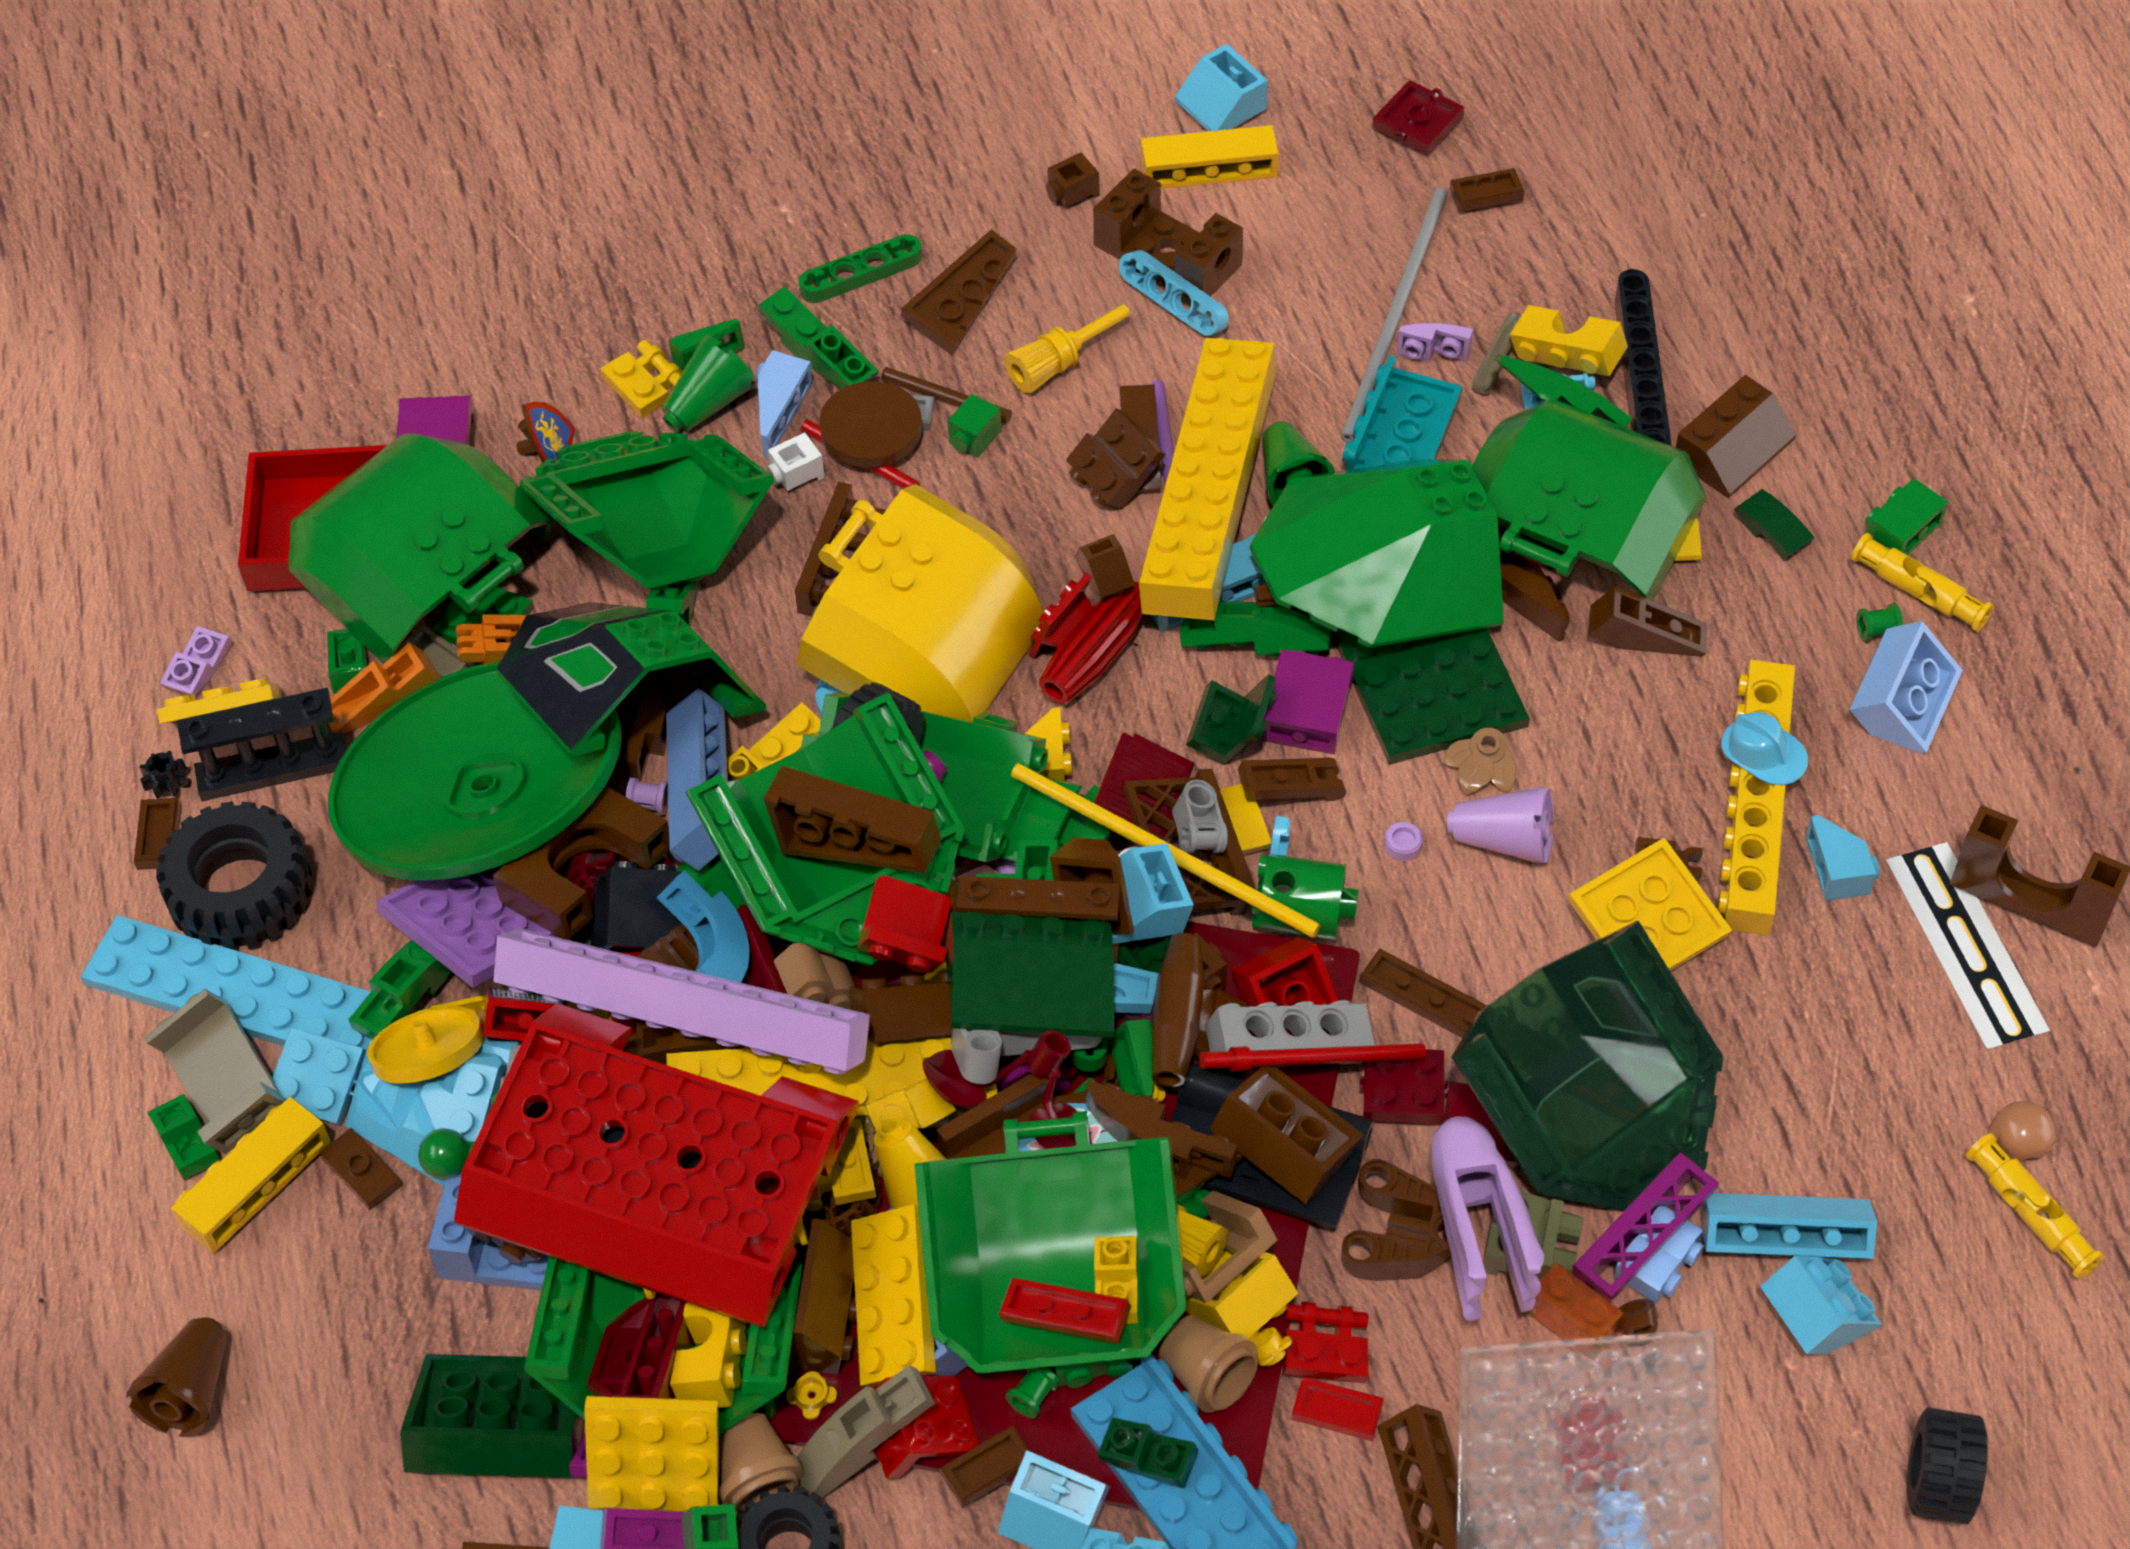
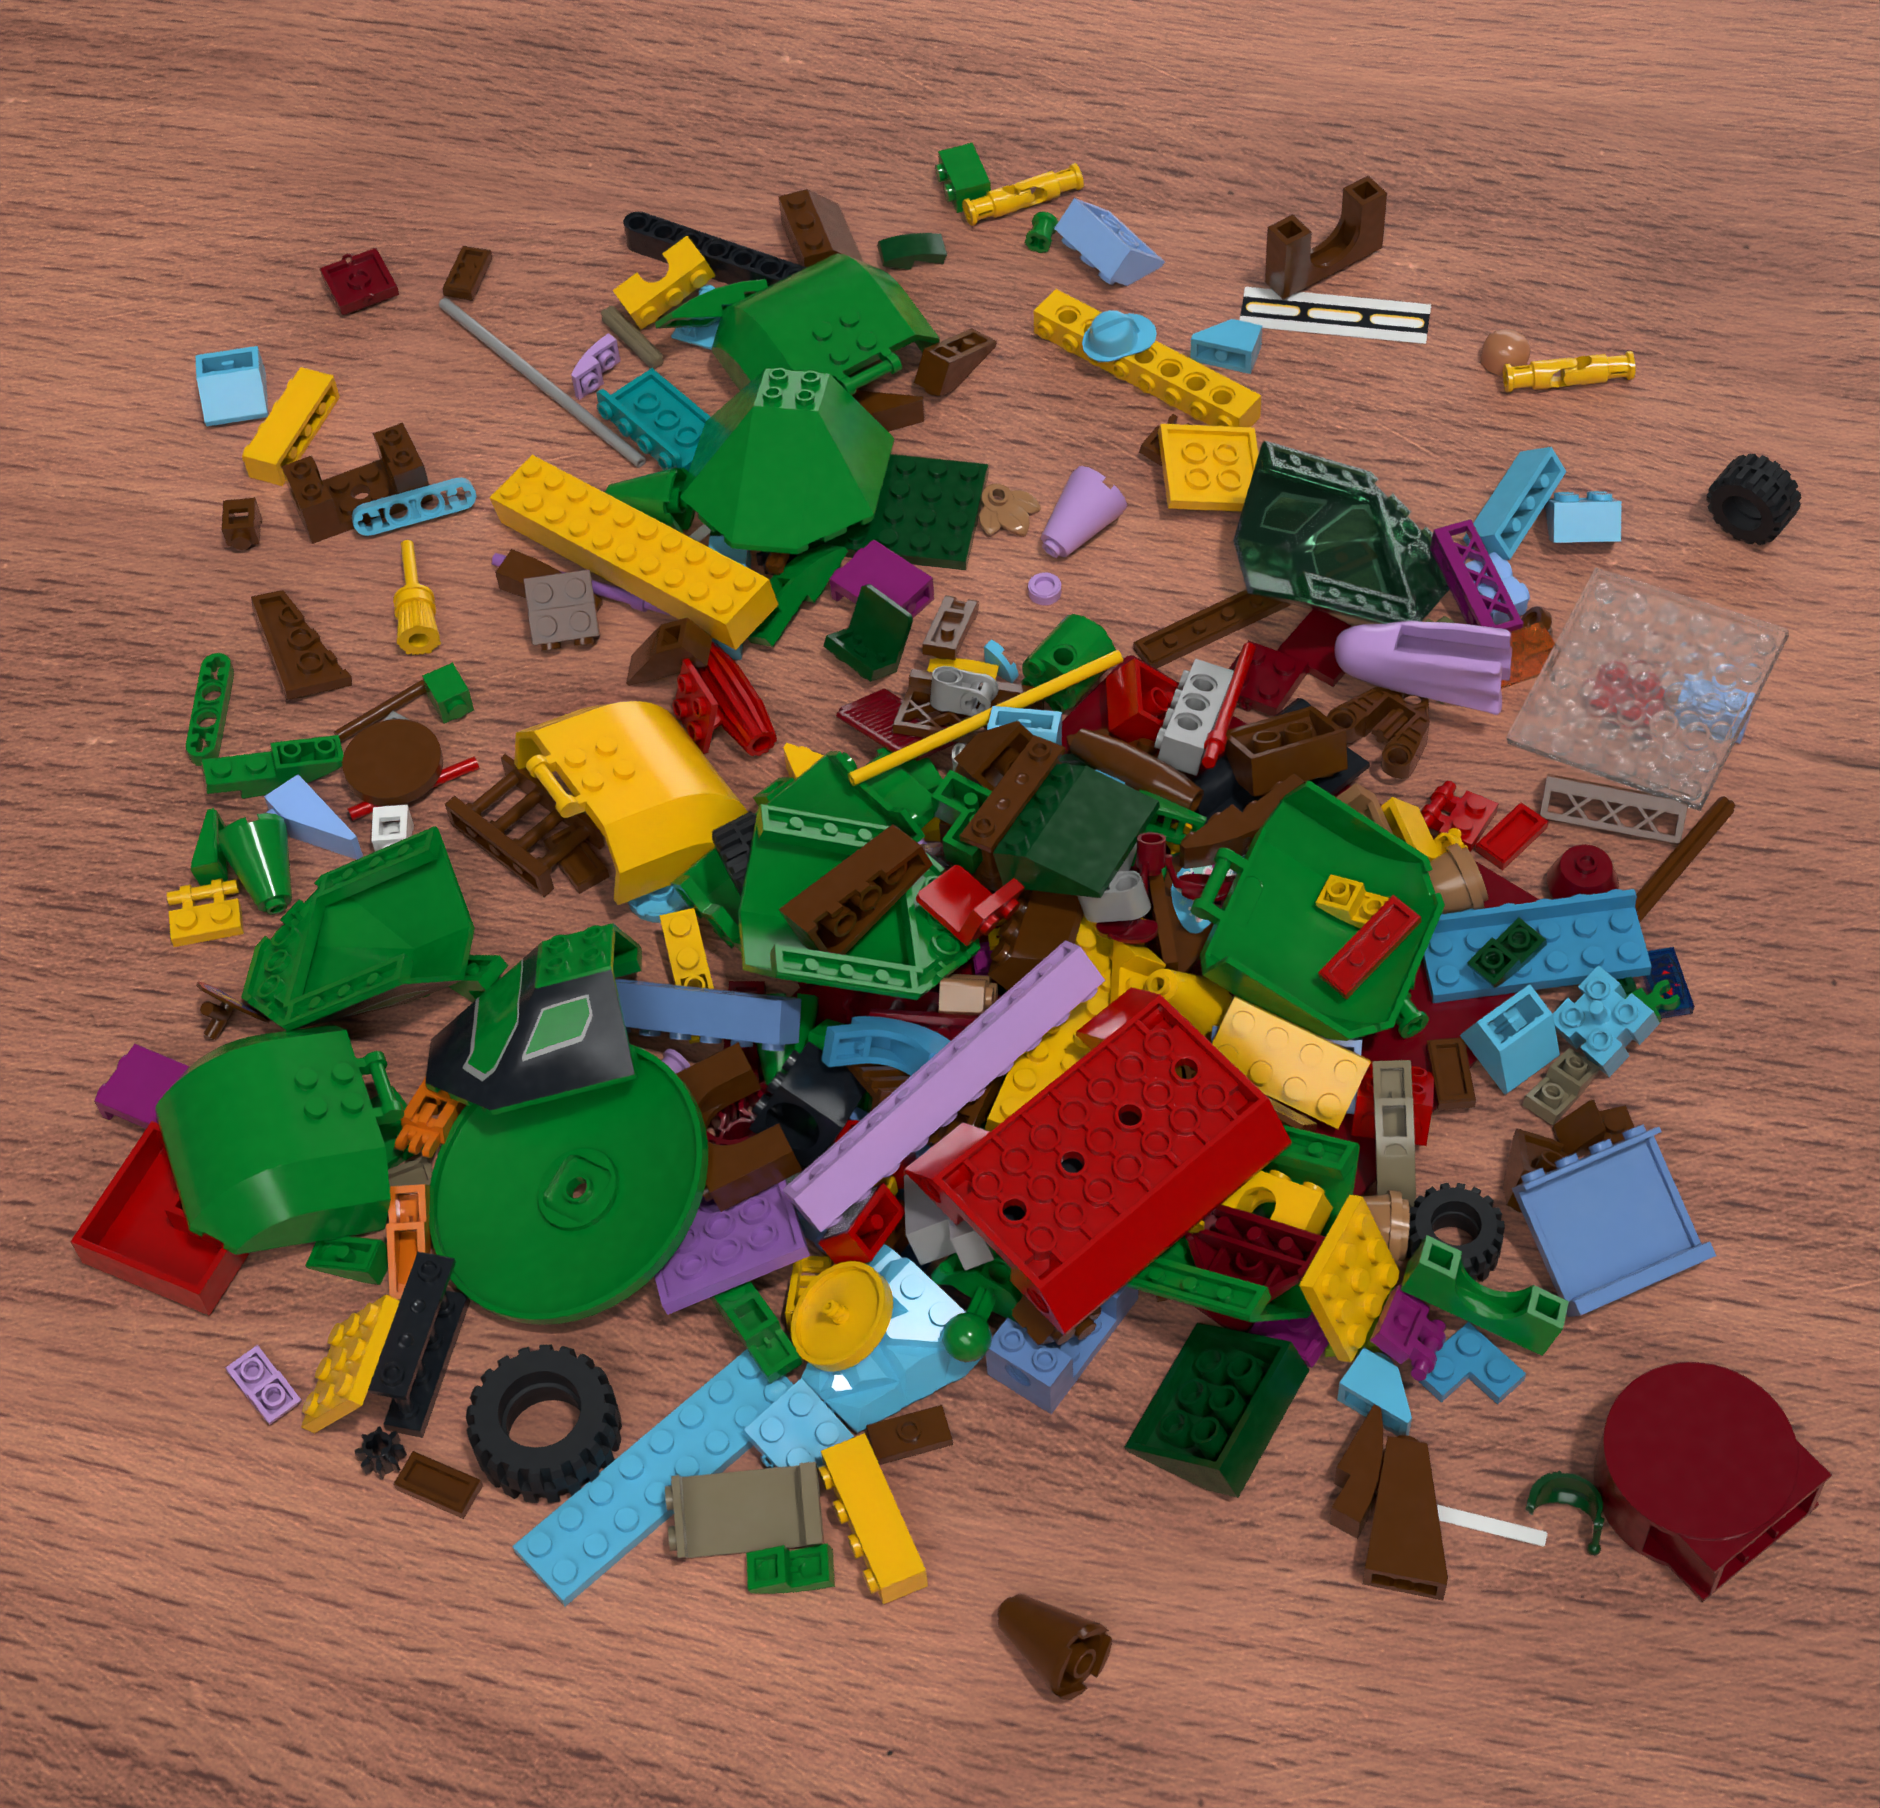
camera: 60 degrees left, 0 degrees up
(1311, 1499) = (1581, 871): none -> dark red cone

